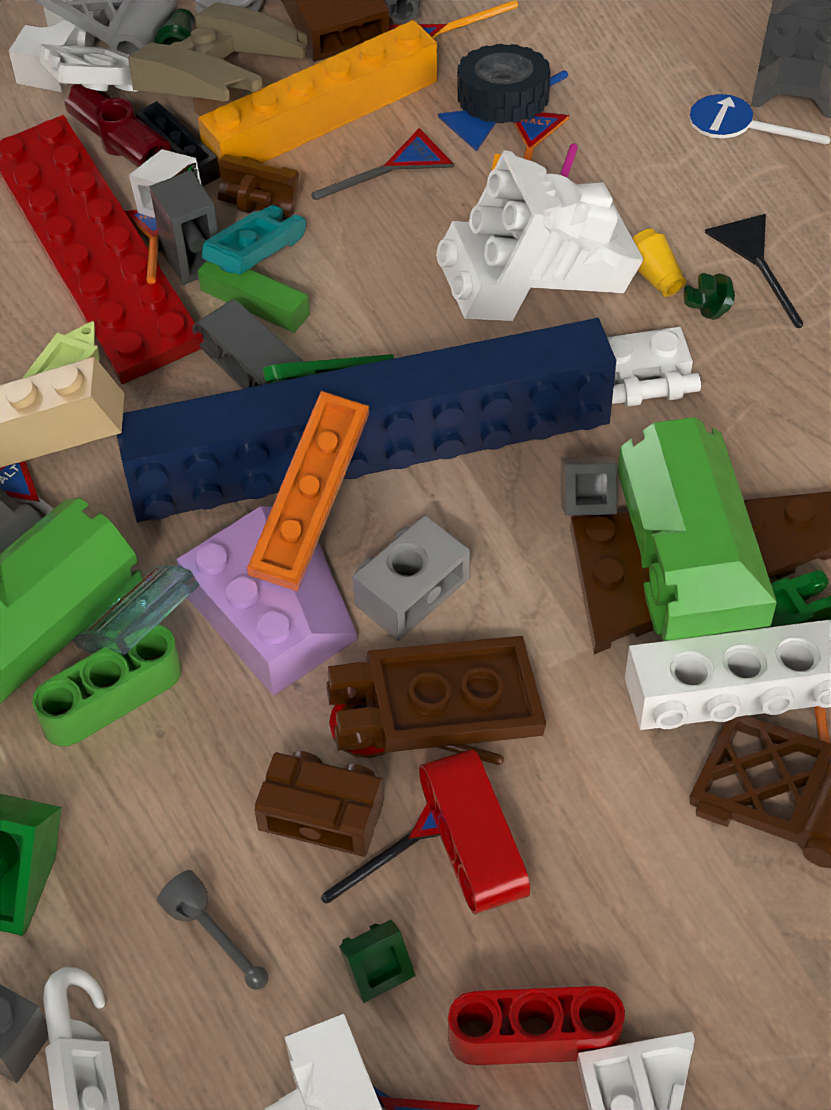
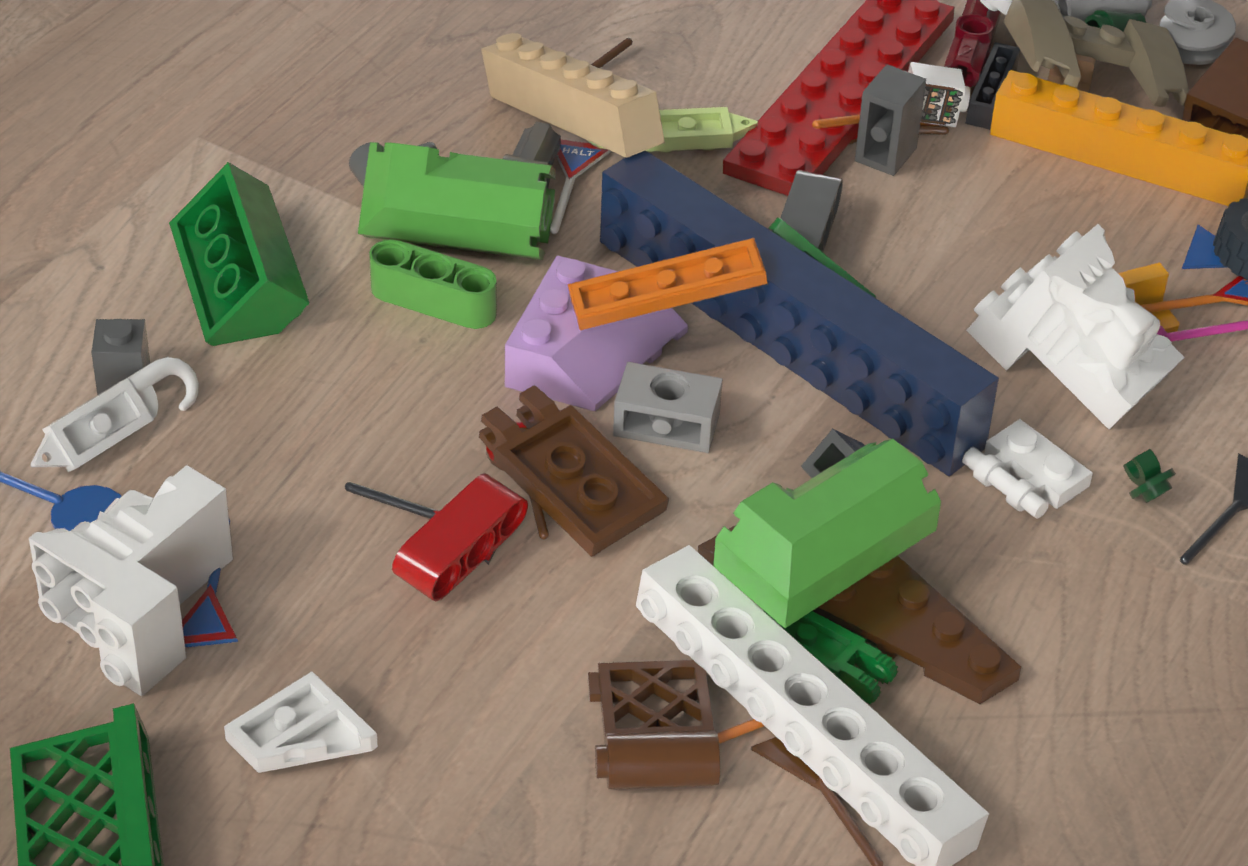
camera: 55 degrees right, 10 degrees down
(138, 610) = (503, 262): clear light blue slope -> none
(186, 900) = (289, 407): dark grey hinge -> none
(253, 239) = (924, 166): teal hinge -> none
(257, 185) = (990, 148): reddish brown hips -> none
(257, 294) = (877, 199): bright green piece -> none
(320, 802) = (421, 442): reddish brown brick -> none
(377, 960) = (311, 528): dark green tile -> none
(415, 153) = (1137, 233): piece -> none
(511, 1044) = (319, 637): red beam -> none
(659, 262) = (1155, 423): yellow cone -> none

